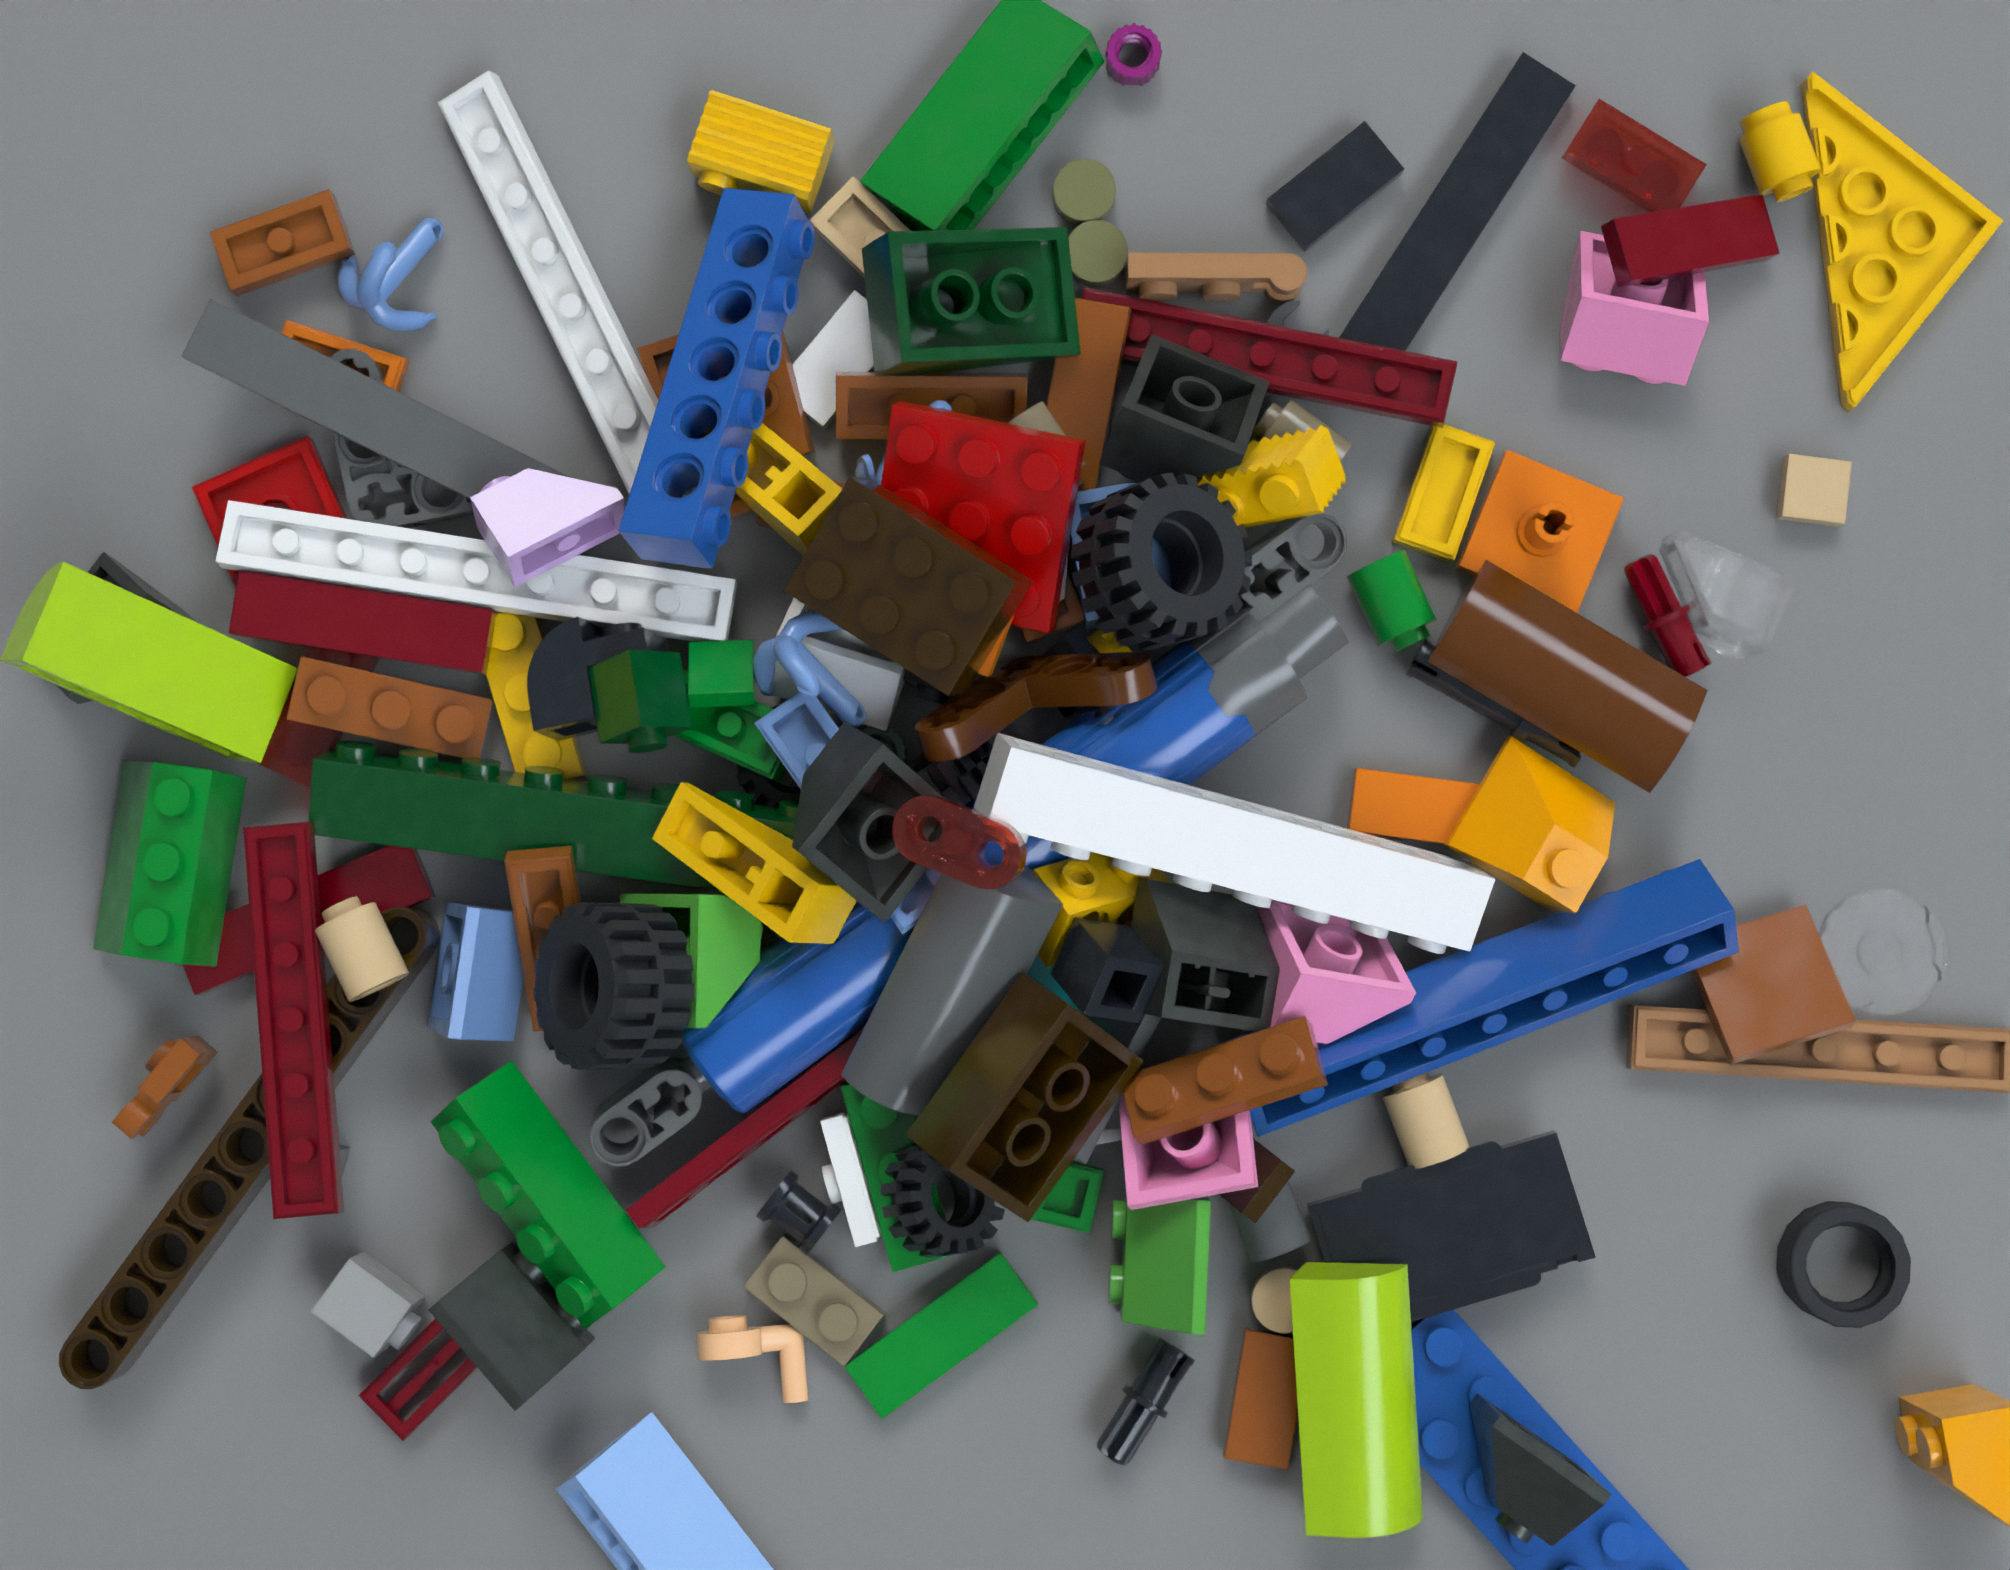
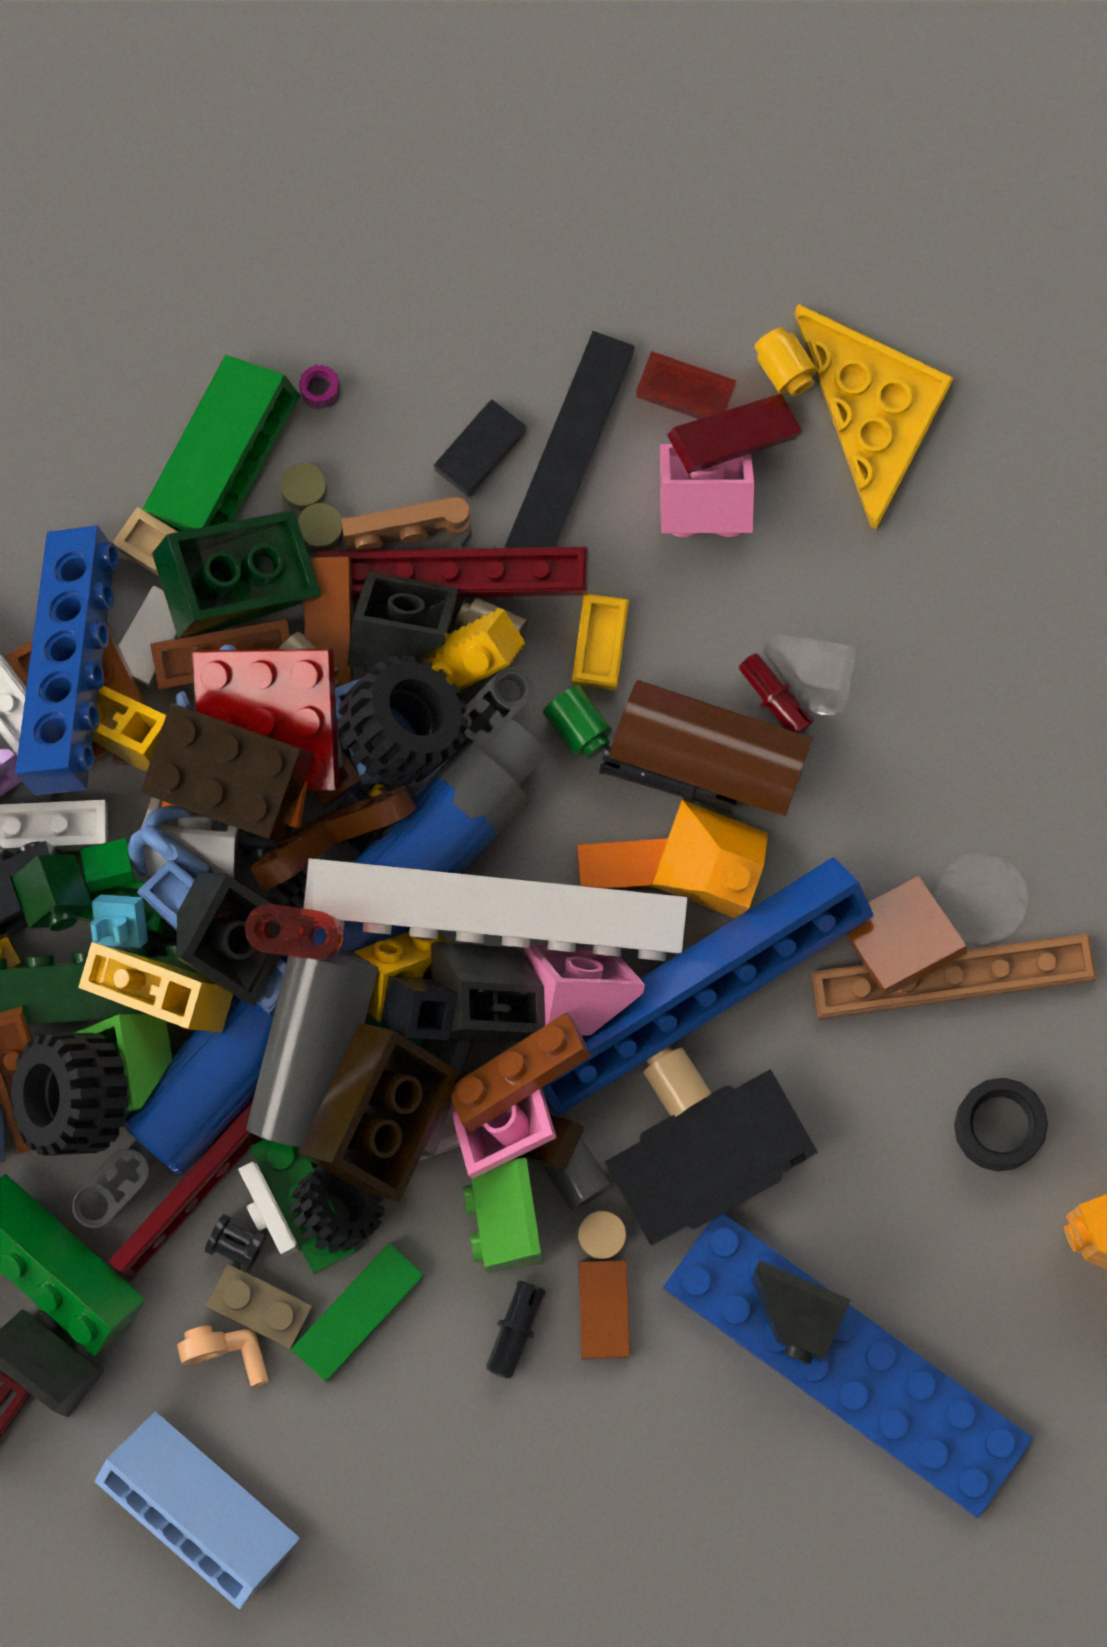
camera: 10 degrees left, 10 degrees down
(723, 757) = (119, 921): none -> medium azure tile
(759, 150) = (67, 501): yellow brick -> none
(1072, 1198) = (429, 1193): green tile -> none
(1356, 1399) = (665, 1289): lime brick -> none
(1541, 528) = (675, 651): orange tile -> none
(1814, 490) = (862, 588): tan tile -> none

